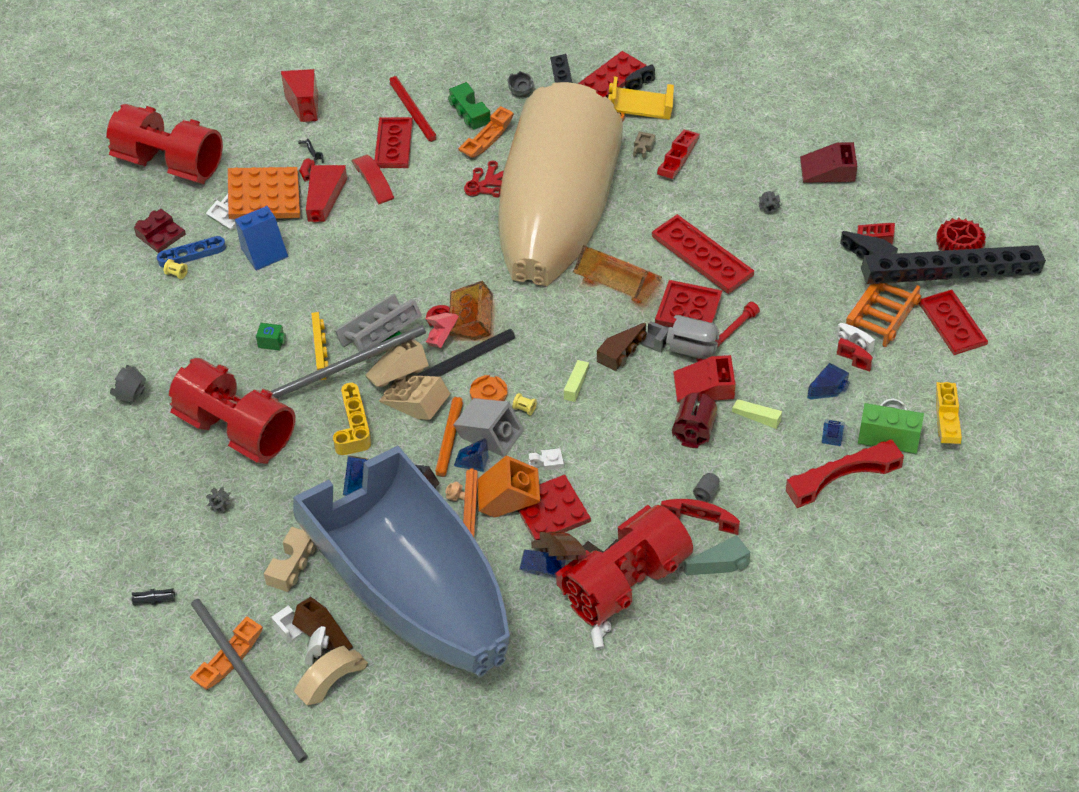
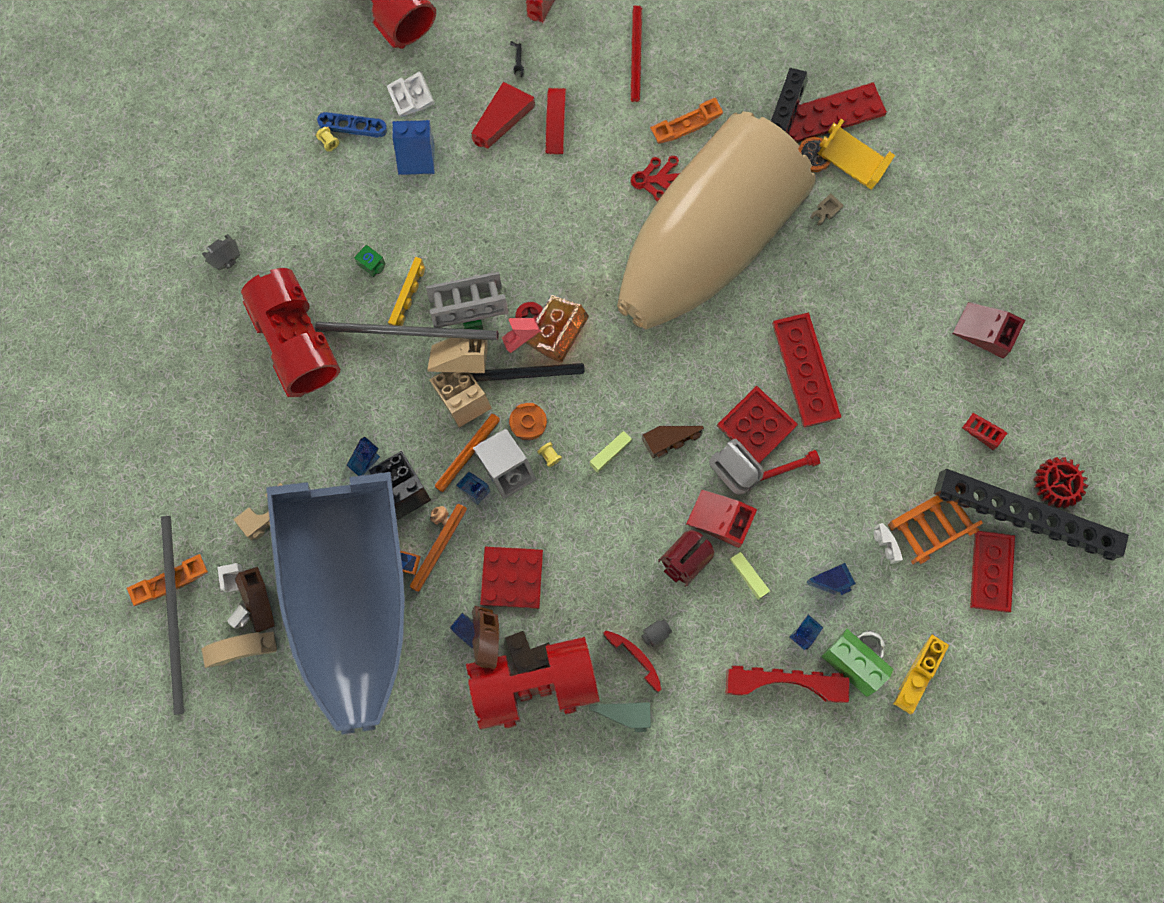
camera: 25 degrees right, 25 degrees up
(153, 596) = (140, 486): black pin -> none
(158, 230) = (335, 85): dark red plate -> none
(213, 501) = (238, 417): dark grey gear -> none
(261, 187) = (446, 89): orange plate -> none
(306, 165) = (500, 76): red arm -> none
(357, 436) = (393, 389): yellow beam -> none
(393, 142) = (597, 86): red tile -> none
(463, 99) = (688, 65): green arch -> none
(508, 487) = (482, 544): orange slope -> none
(520, 83) = (751, 76): dark grey hair -> none
(549, 459) = (539, 525): white plate -> none
(597, 634) = (476, 733): white arm -> none
(616, 274) = (716, 354): clear orange windscreen -> none
(640, 76) = (876, 125): black slope -> none
(656, 337) = (707, 444): flat silver panel -> none
(678, 153) = (853, 238): red slope -> none
(769, 202) = (904, 343): dark grey gear -> none
(852, 351) = (879, 568): red slope -> none
(866, 245) = (969, 454): black slope -> none

